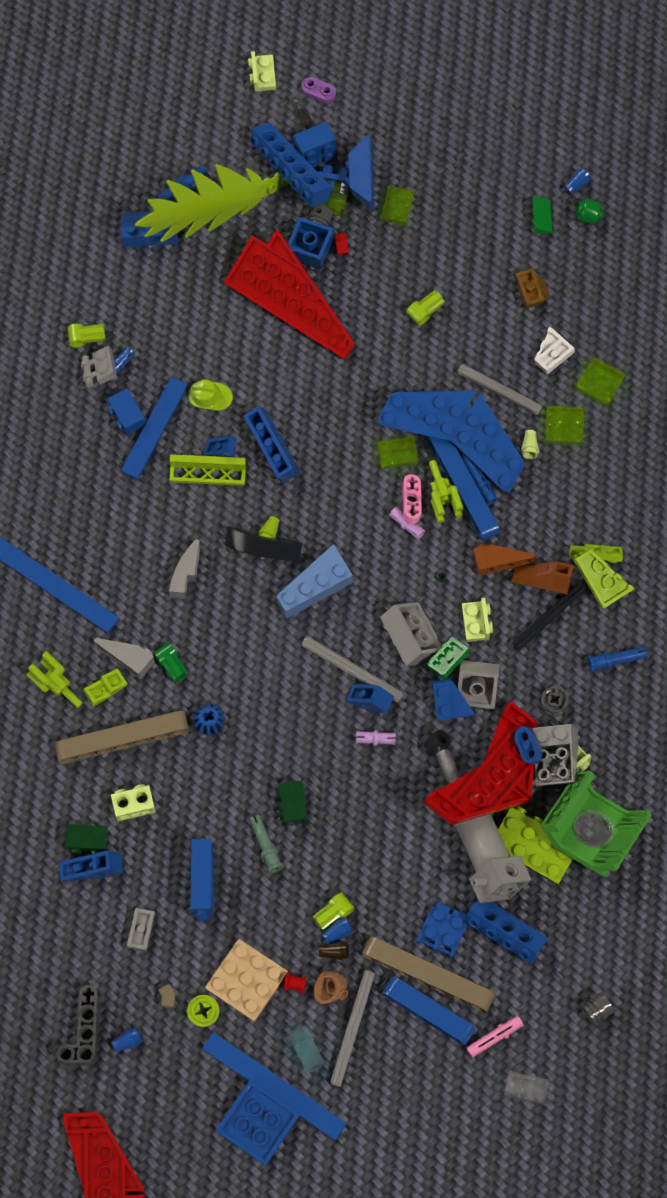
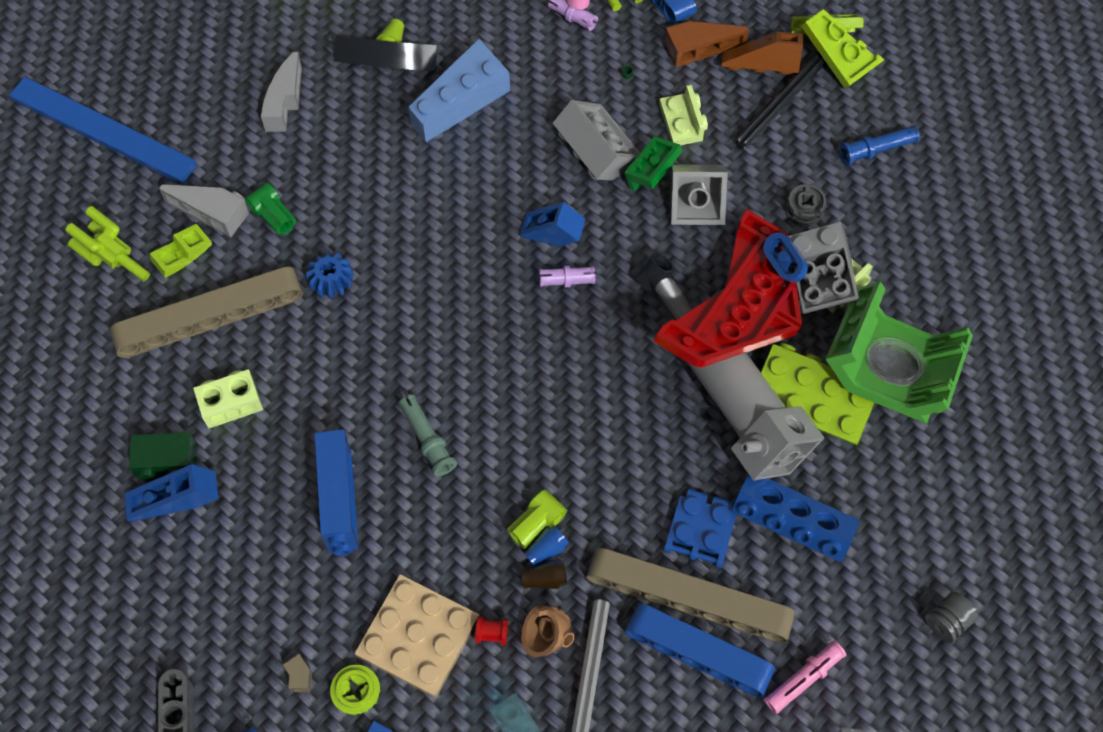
camera: 10 degrees left, 5 degrees down
(141, 929) = (251, 577): light grey plate -> none
(293, 803) = (460, 374): dark green brick -> none
(349, 667) = (513, 189): light grey axle -> none
(449, 701) = (663, 217): blue wing -> none

